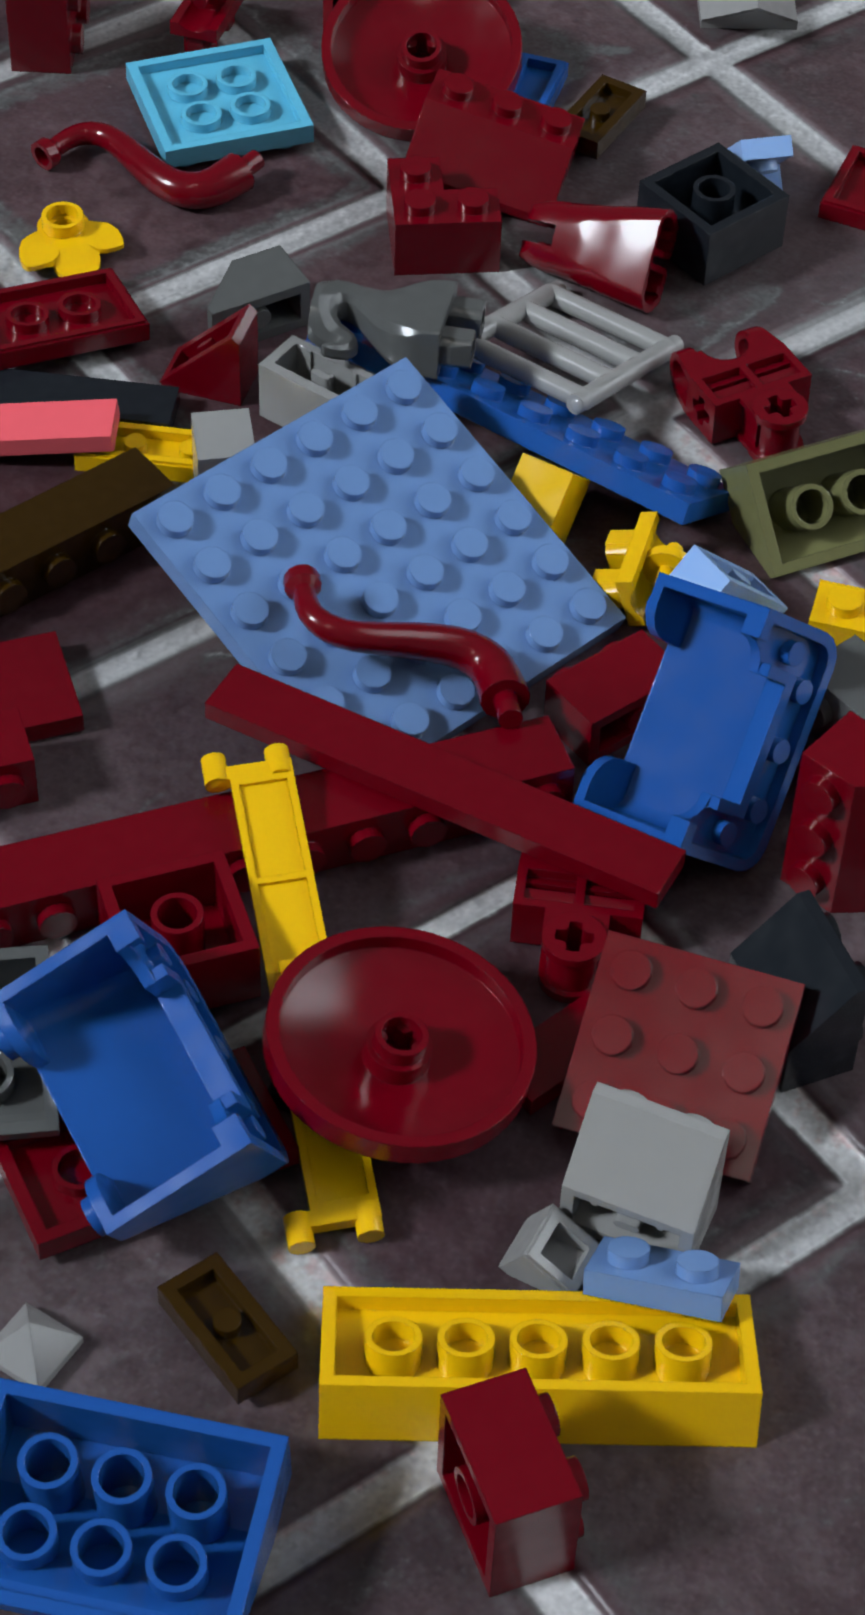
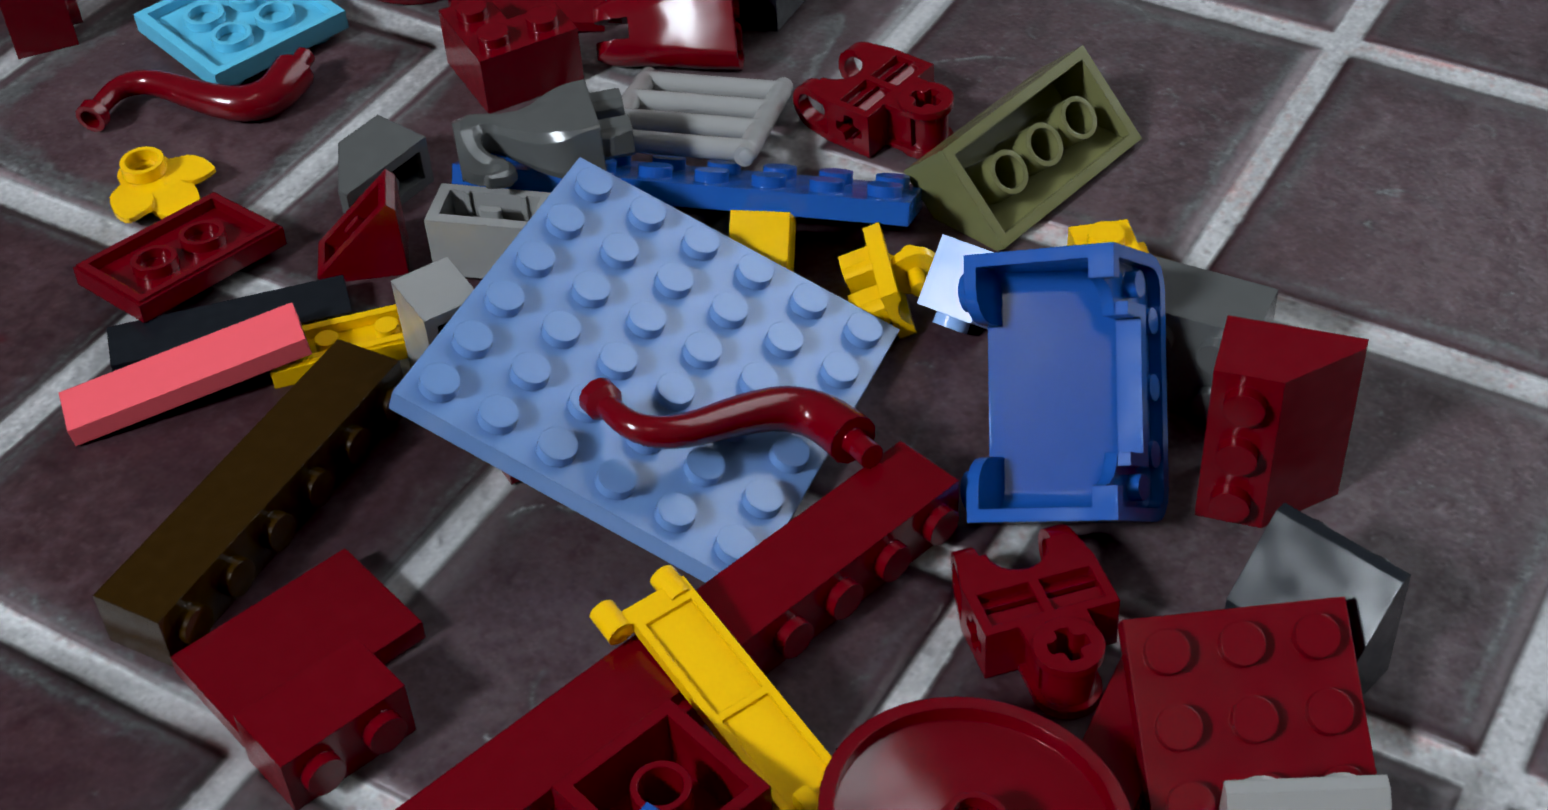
camera: 20 degrees left, 5 degrees down
(447, 785) = (848, 544): dark red tile -> none
(603, 696) = (936, 400): dark red brick -> none

